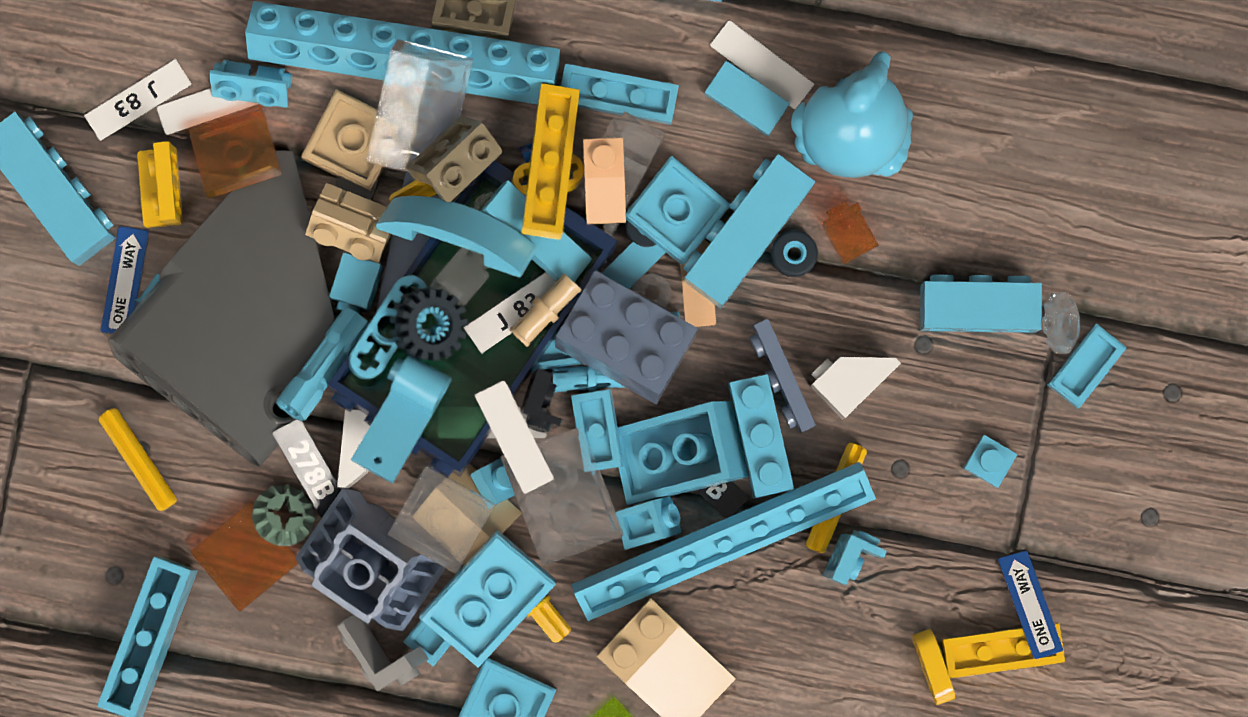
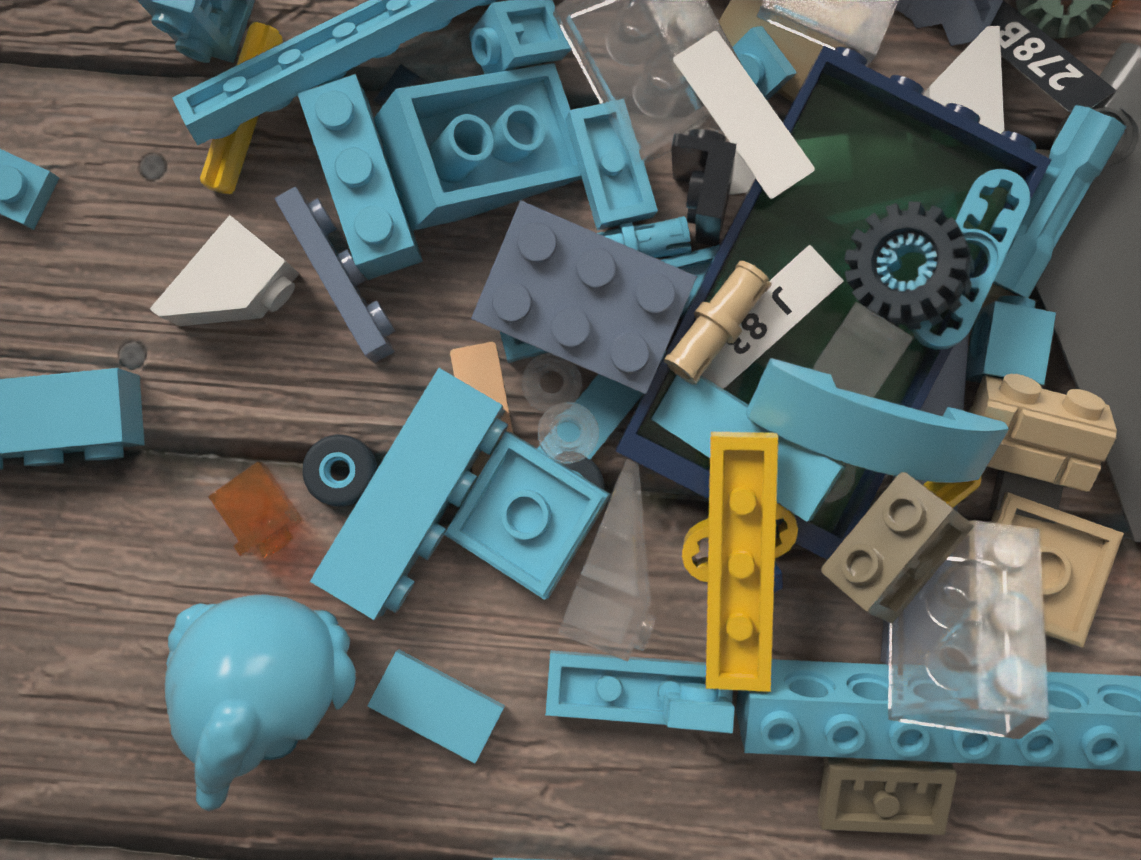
camera: 175 degrees right, 0 degrees up
(402, 418) = (930, 111): medium azure door -> none
(585, 77) = (698, 709): none -> medium azure plate
(604, 181) = (648, 542): light nougat slope -> none
(654, 248) = (565, 451): none -> clear plate
(761, 64) = (420, 764): white sticker -> none

